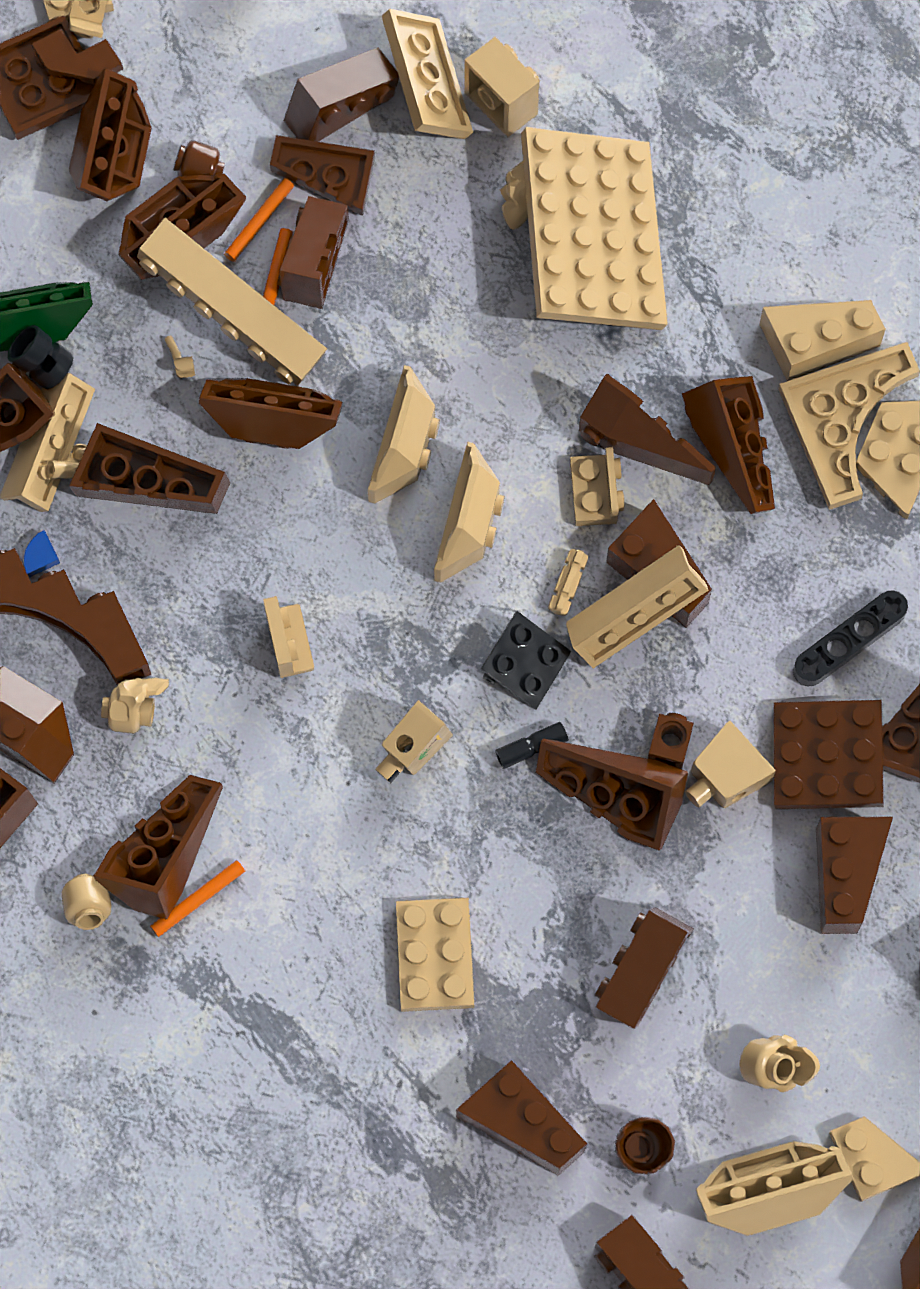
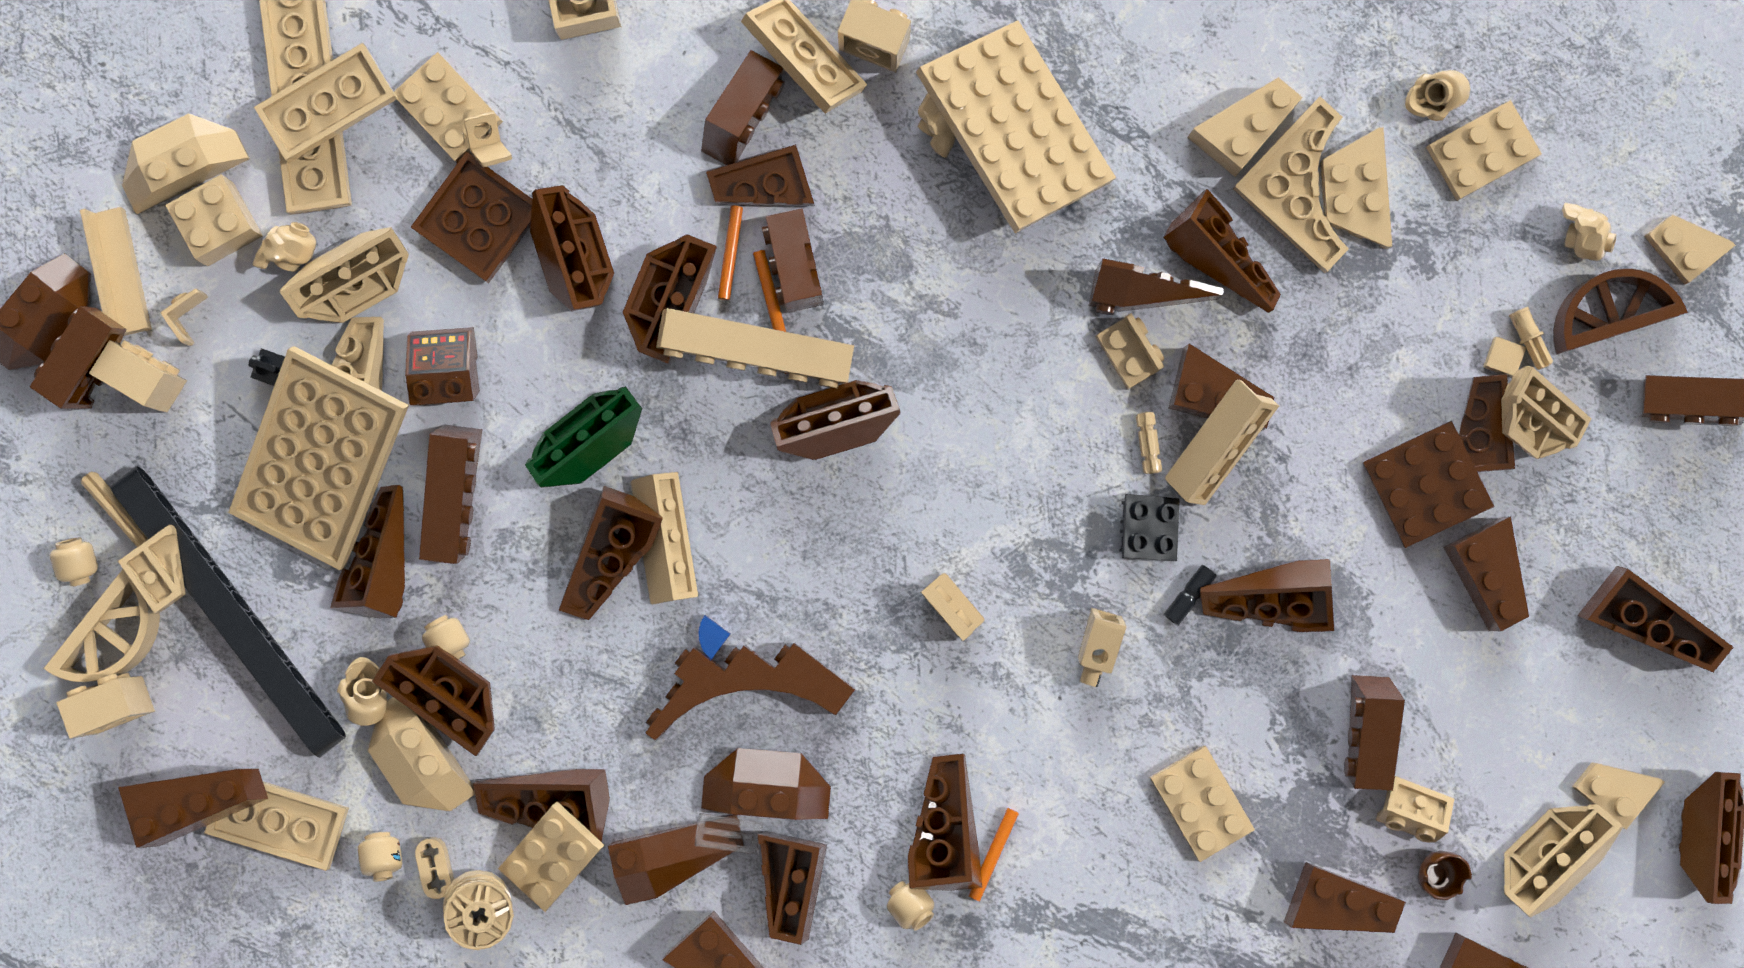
camera: 25 degrees left, 15 degrees up
(36, 354) = (621, 472): black wheel -> none
(62, 60) = (513, 190): reddish brown tile -> none
(67, 468) = (698, 548): tan arm -> none
(130, 704) = (859, 726): tan head -> none
(144, 474) = (759, 529): reddish brown wedge -> none
(183, 366) = (739, 415): tan hand -> none
(198, 159) = (654, 229): reddish brown head -> none
(405, 439) = (955, 385): tan wedge -> none
(470, 516) = (1042, 426): tan wedge -> none
(649, 1068) = (1416, 811): none -> tan bracket
(671, 724) = (1312, 543): reddish brown brick -> none
(728, 769) = (1356, 537): tan torso -> none
(778, 1063) = (1513, 758): tan head -> none
(853, 641) = (1399, 377): black beam -> none

